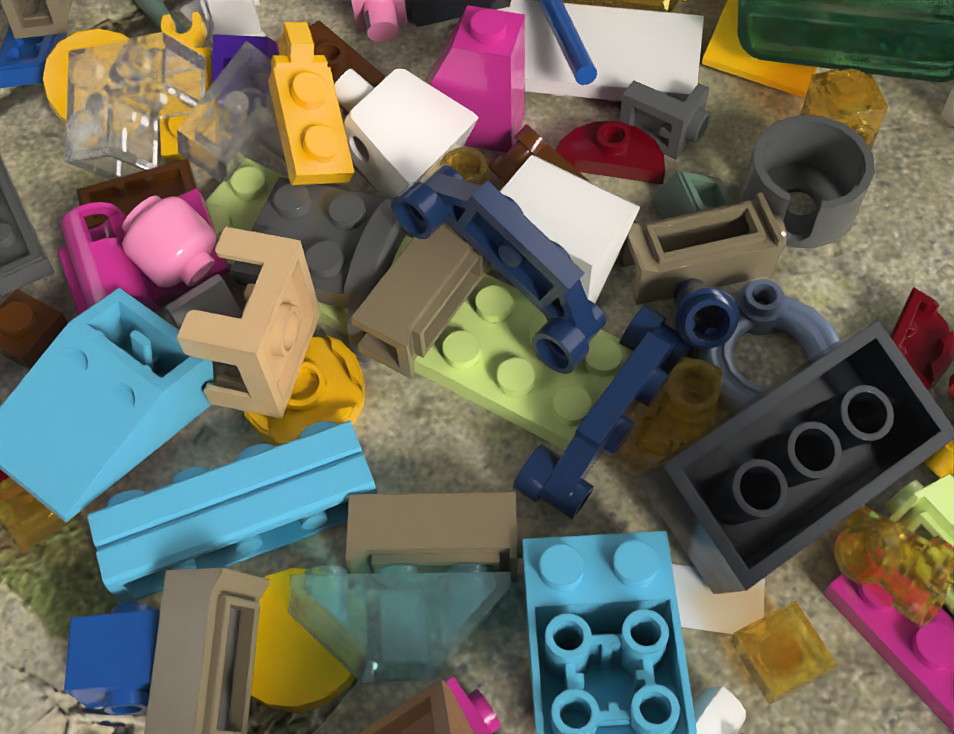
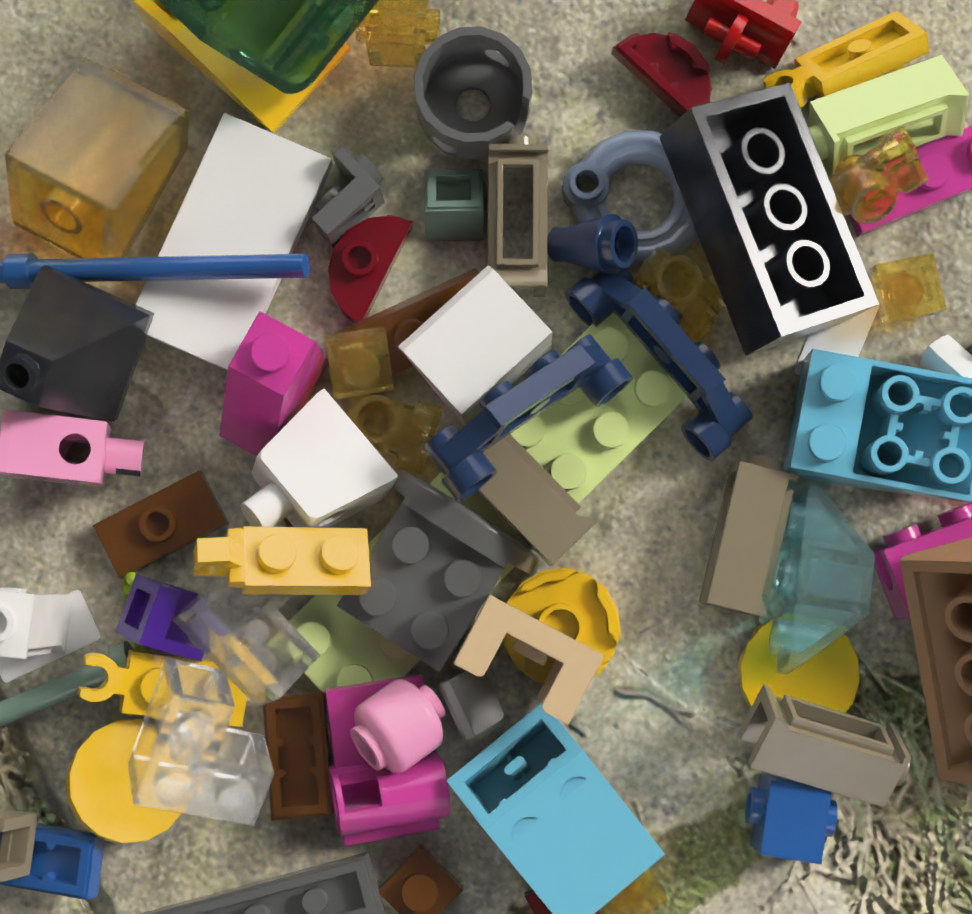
camera: 85 degrees left, 25 degrees up
(230, 510) = (679, 706): medium azure brick -> none
(510, 141) = (358, 362): none -> clear yellow plate

